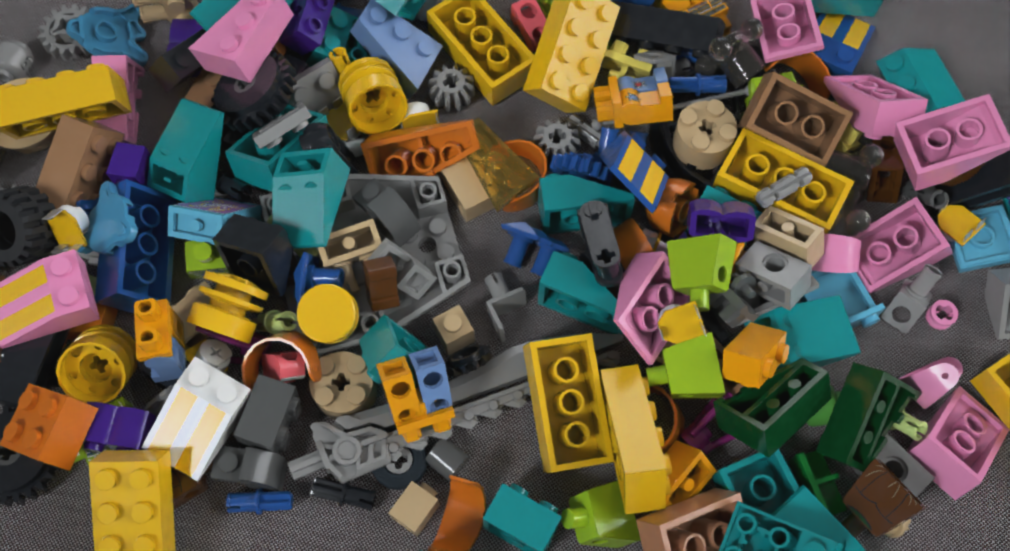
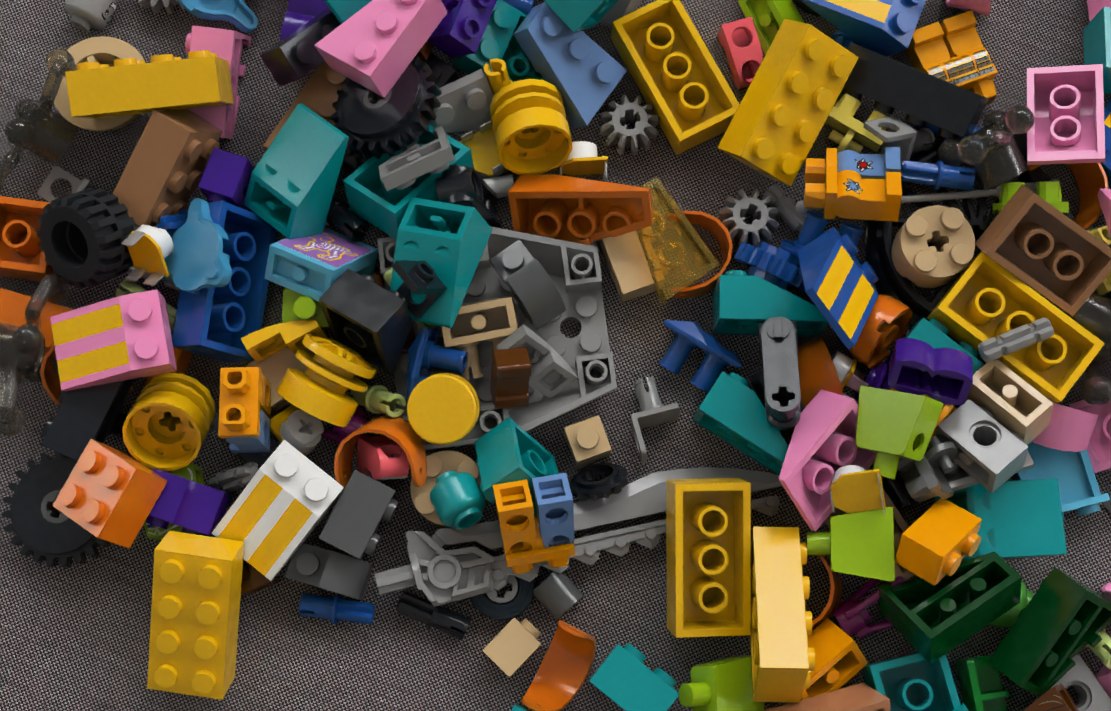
camera: 10 degrees right, 10 degrees up
(185, 281) = (274, 338): none -> yellow slope
(294, 206) = (419, 279): none -> black bracket
(349, 386) = (457, 500): none -> teal head

